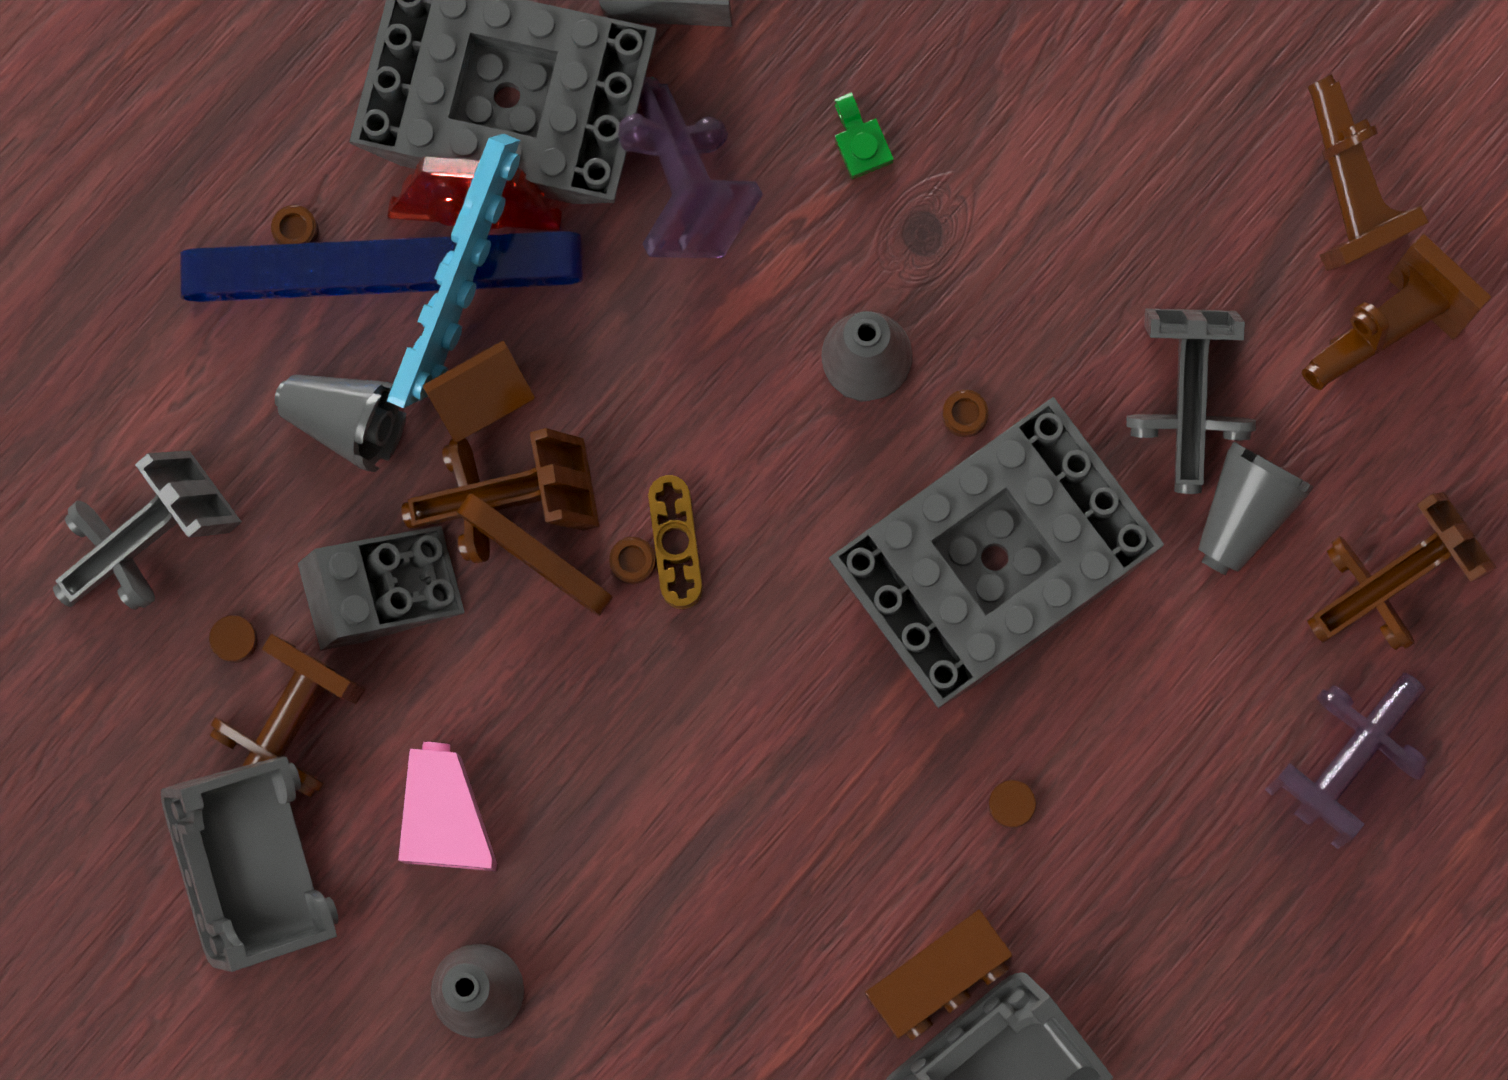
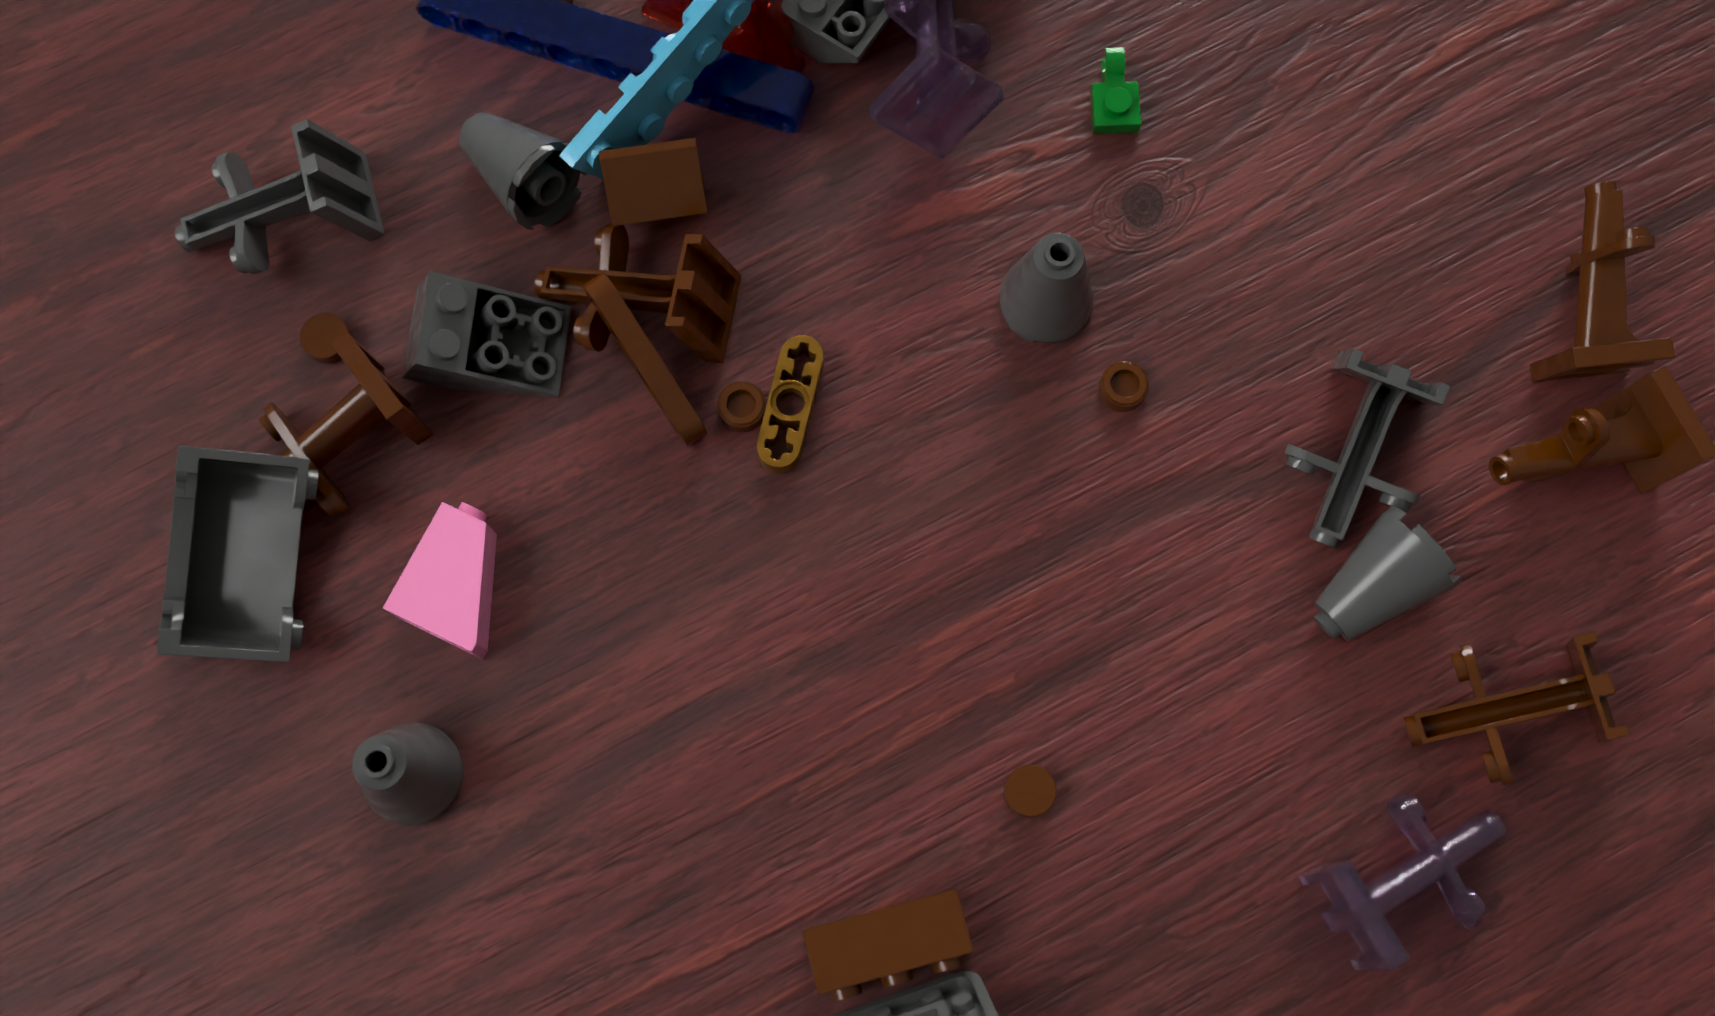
camera: 10 degrees right, 5 degrees down
(1038, 499) = (1165, 488): dark grey slope -> none

